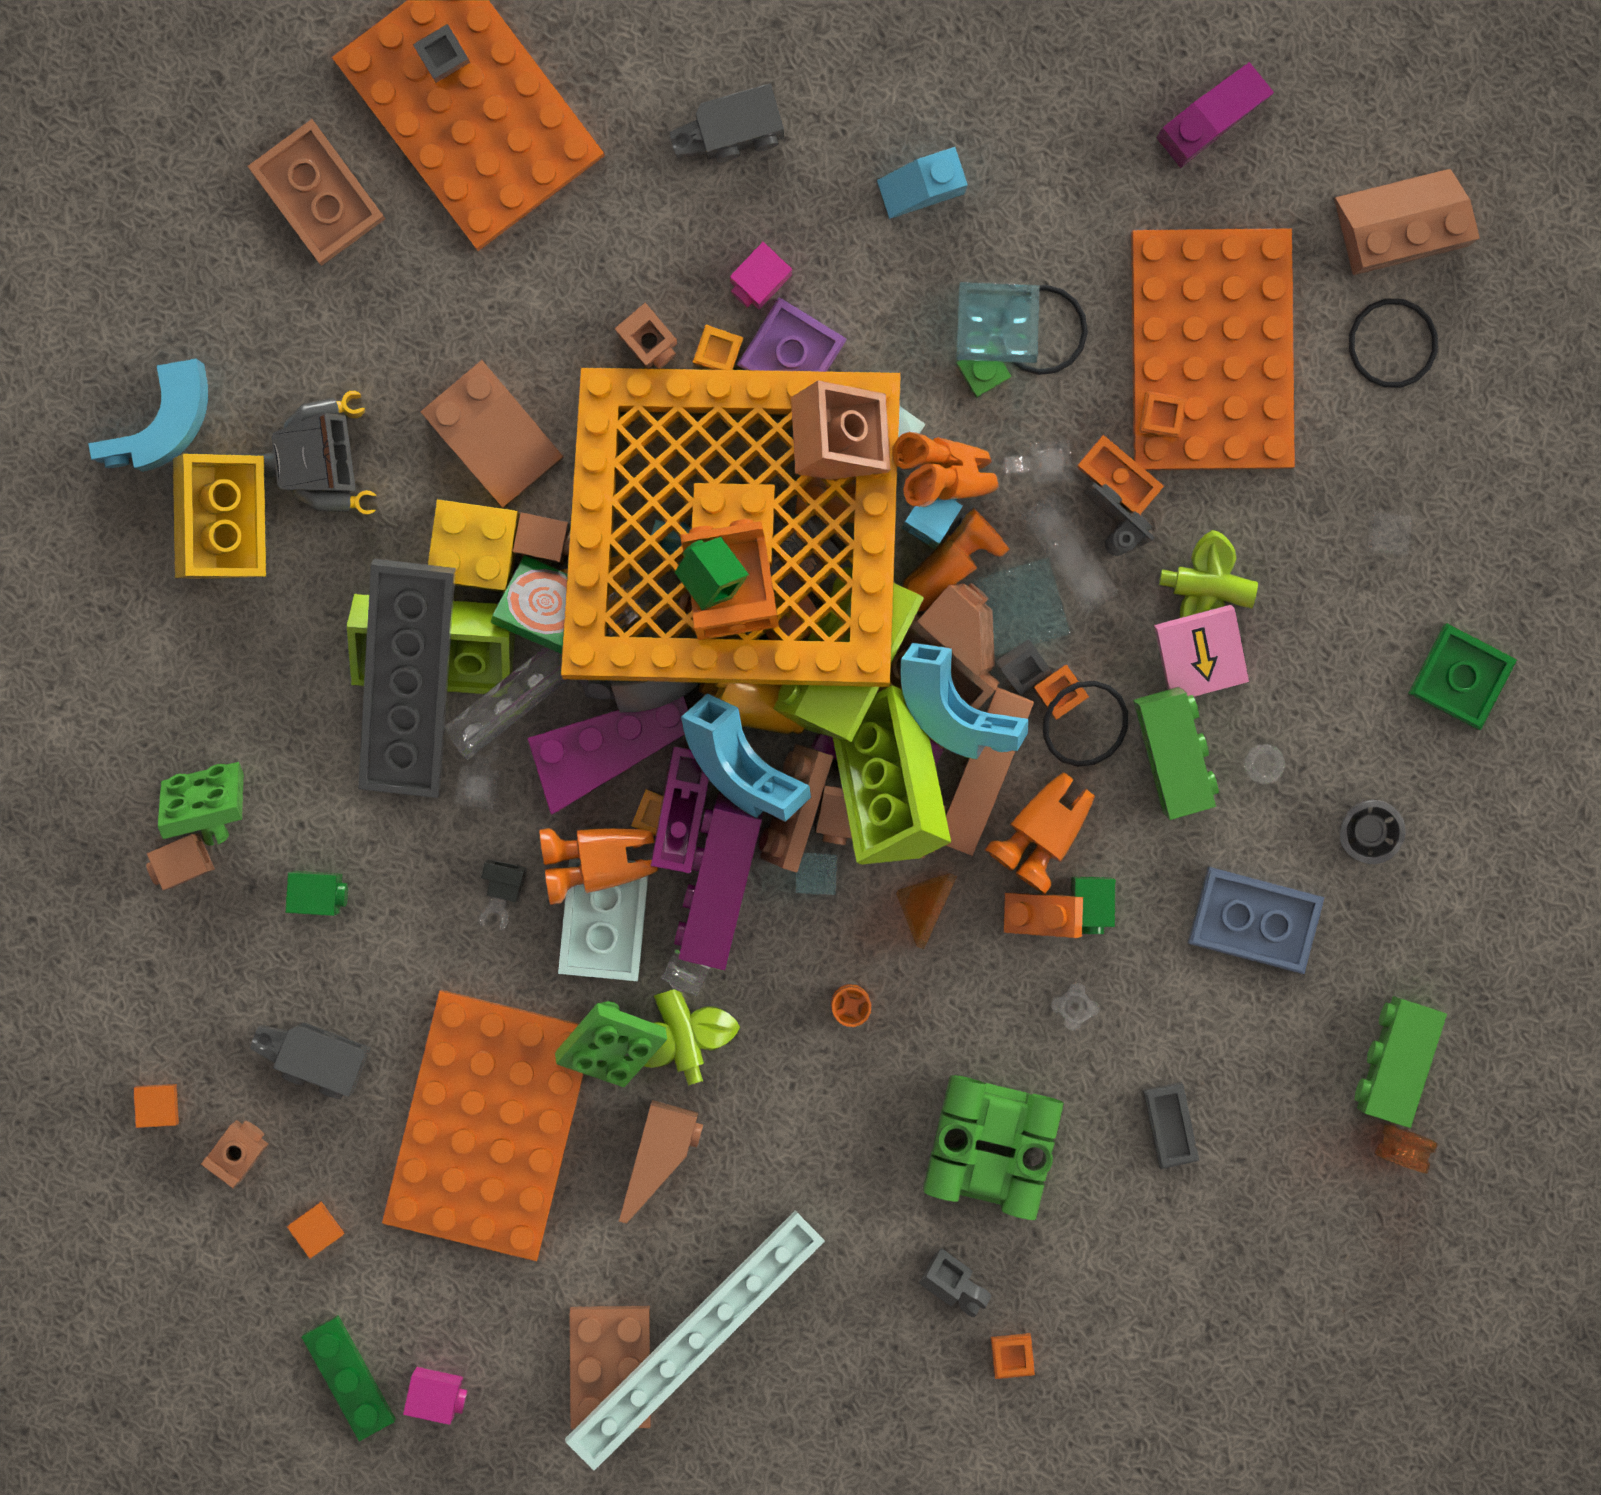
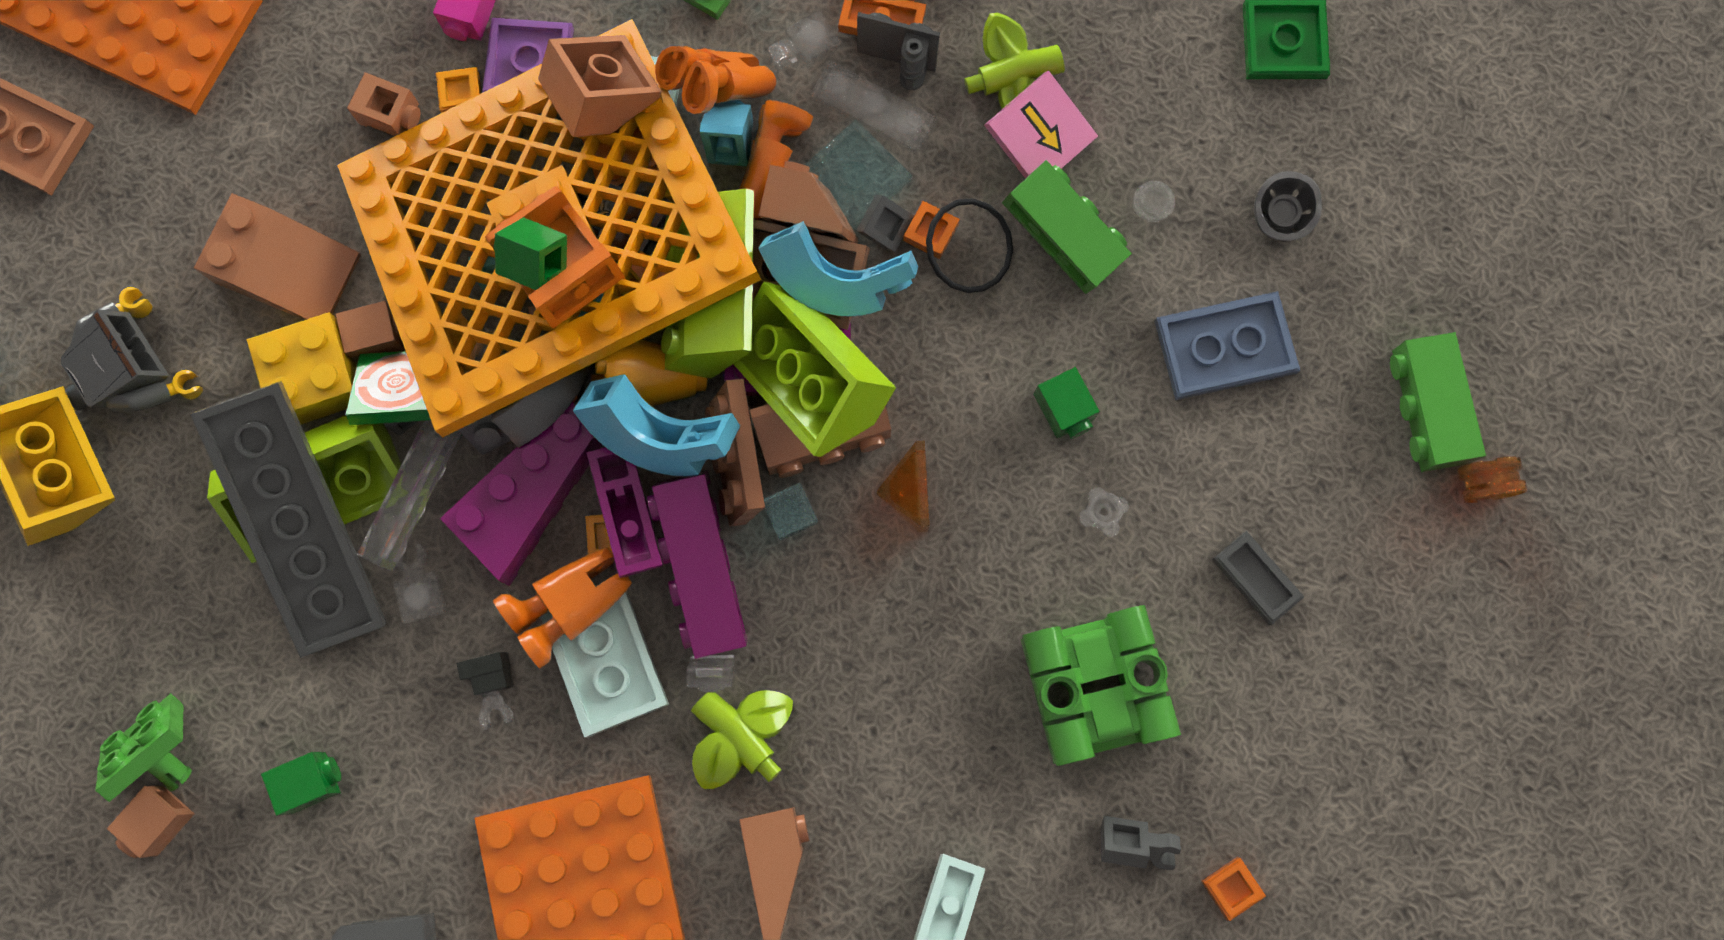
camera: 25 degrees left, 10 degrees down
(614, 1037) = (668, 766): bright green plate -> none
(848, 1010) = (891, 613): orange wheel -> none
(982, 780) = (901, 348): nougat slope -> none
(1043, 915) = (1026, 436): orange plate -> none
(1048, 826) = (989, 353): orange piece -> none

